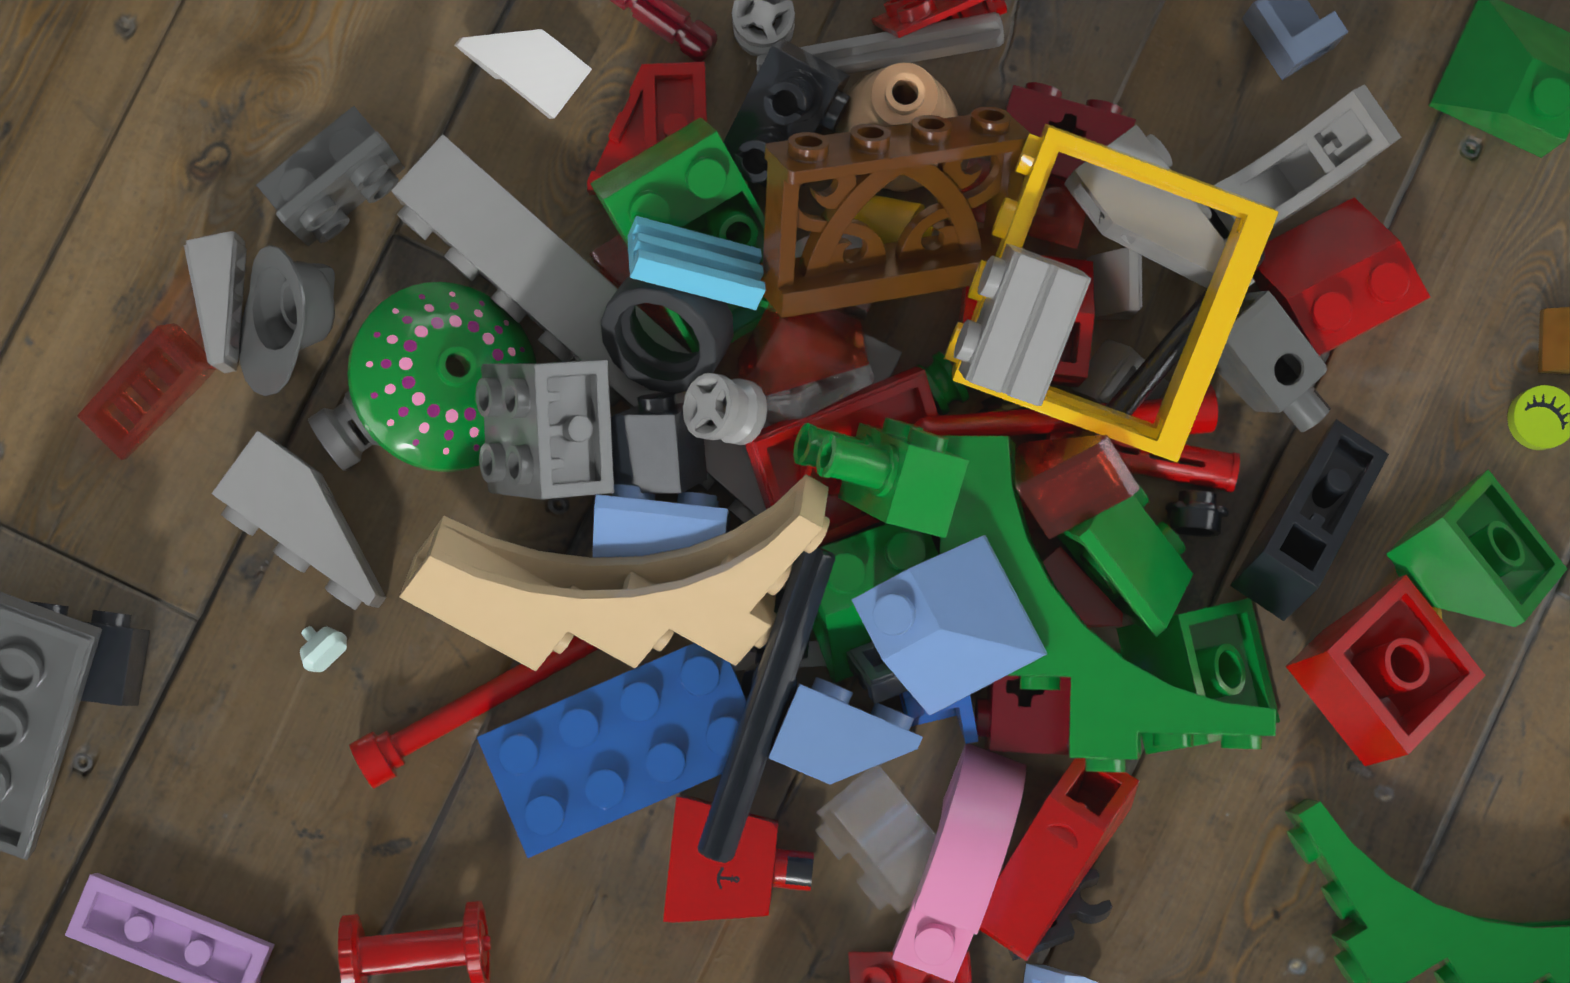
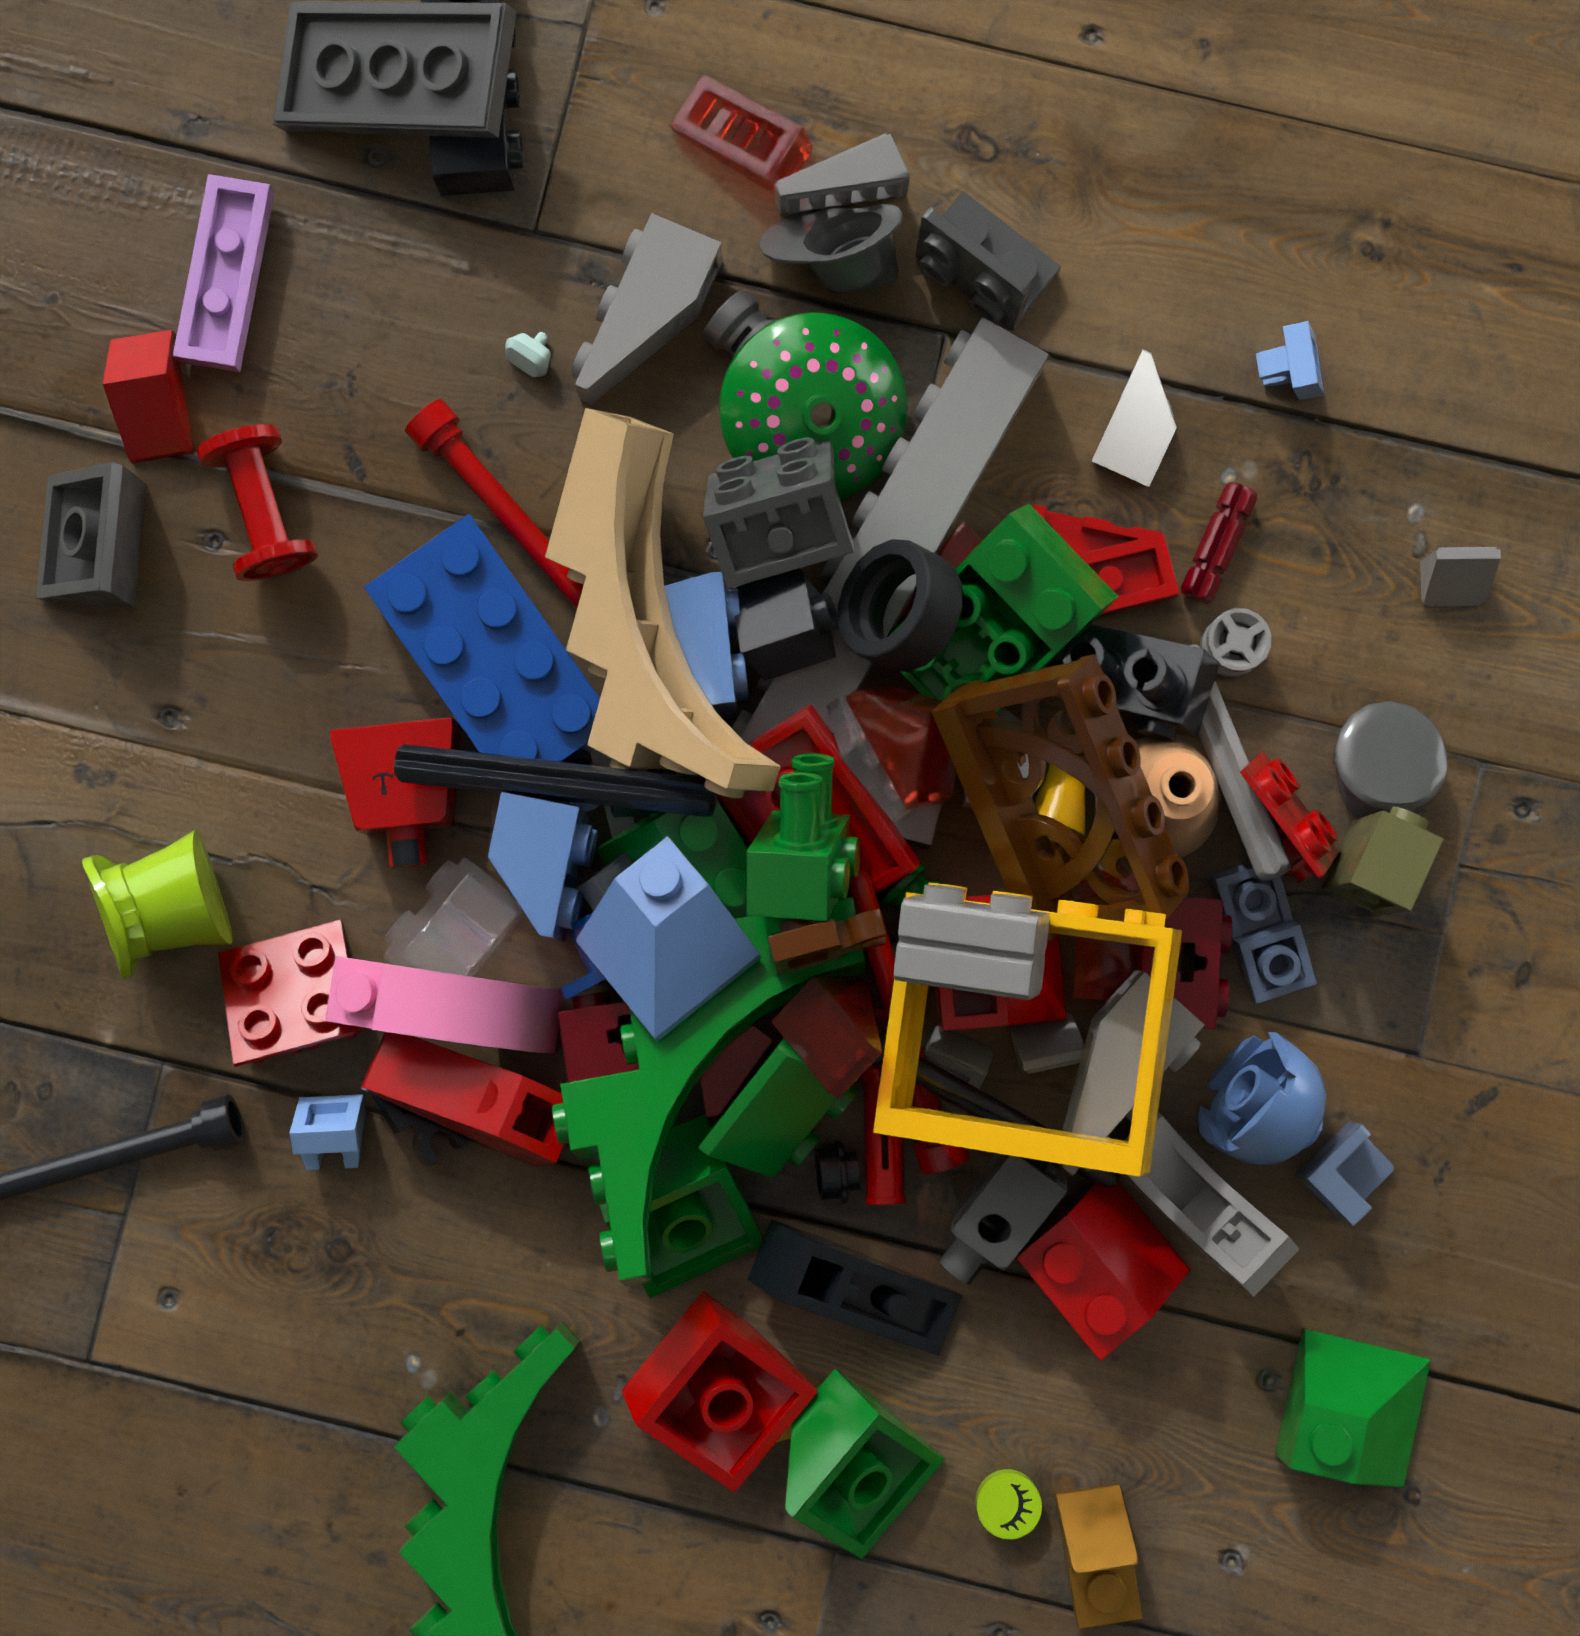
camera: 80 degrees right, 0 degrees up
(695, 263) = (966, 616): medium azure tile -> none
(724, 409) = (831, 677): light grey wheel -> none
(983, 483) = (814, 942): none -> reddish brown plate
(1056, 54) = (1264, 933): none -> sand blue slope
(1213, 90) = (1265, 1103): none -> medium blue cylinder

